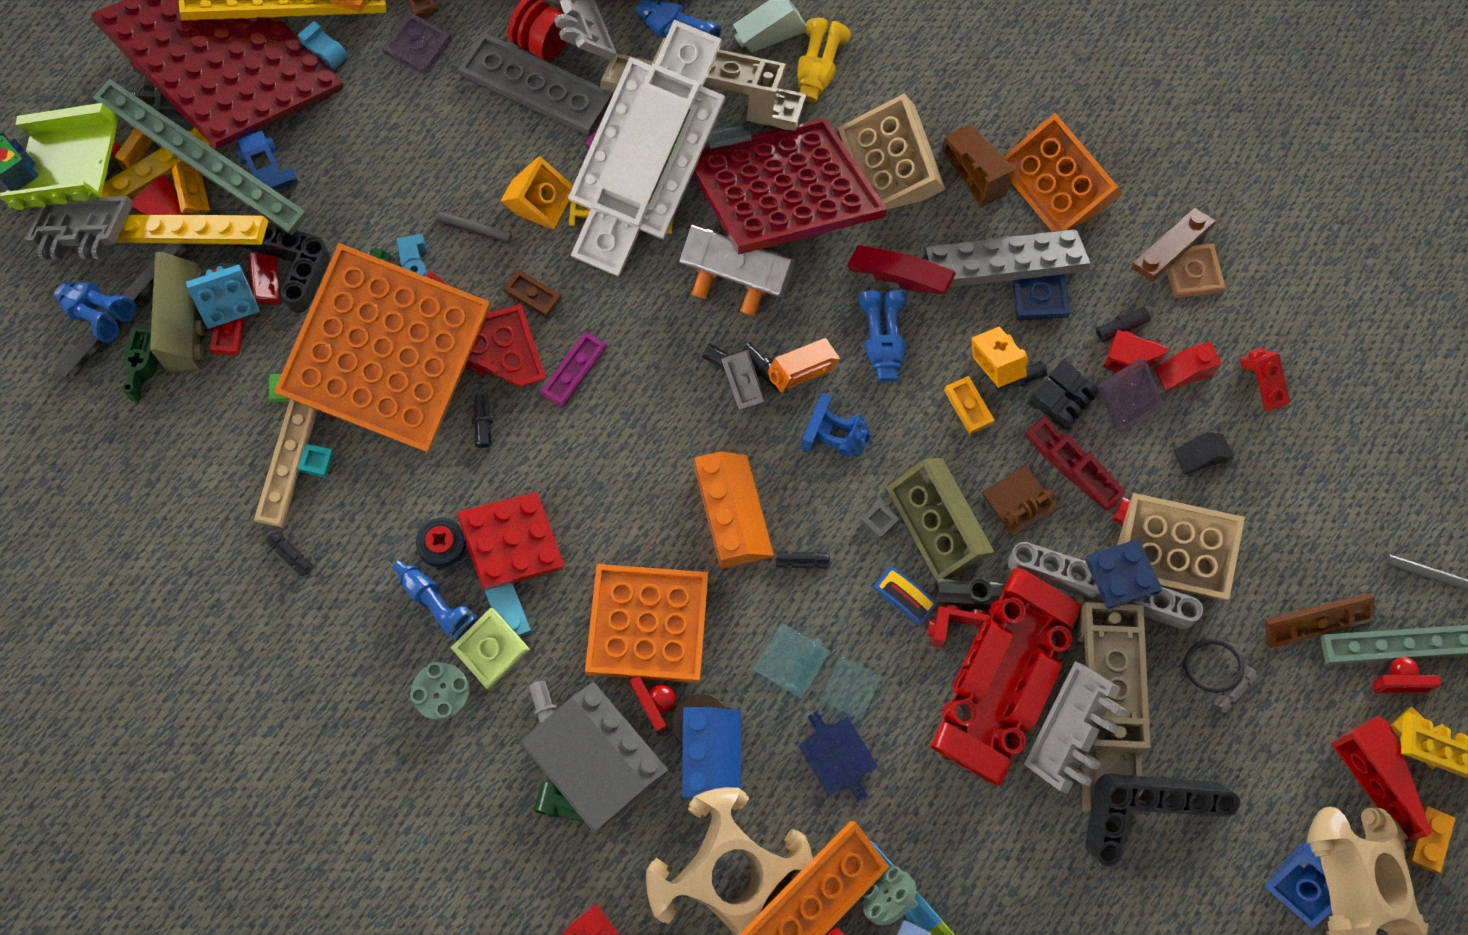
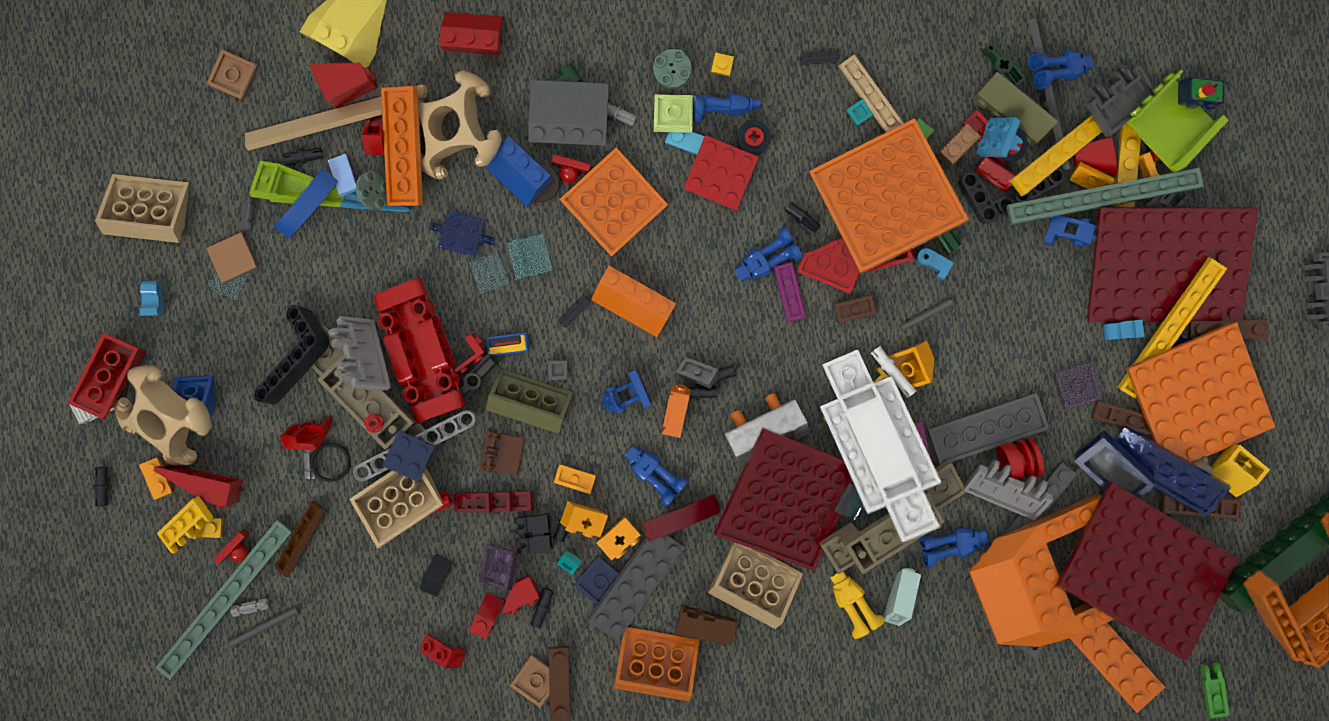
camera: 135 degrees right, 20 degrees up
(265, 335) = (957, 145): none -> medium nougat brick
(387, 647) = (722, 64): none -> yellow plate
(560, 215) = (892, 370): none -> white pin
(576, 421) = (757, 266): none -> blue piece
(968, 314) = (622, 528): none -> light orange brick
(1053, 337) = (569, 562): none -> teal plate
(1126, 646) = (378, 423): none -> red plate
(1215, 716) = (306, 435): none -> red slope
(1440, 607) = (249, 607): none -> light grey axle

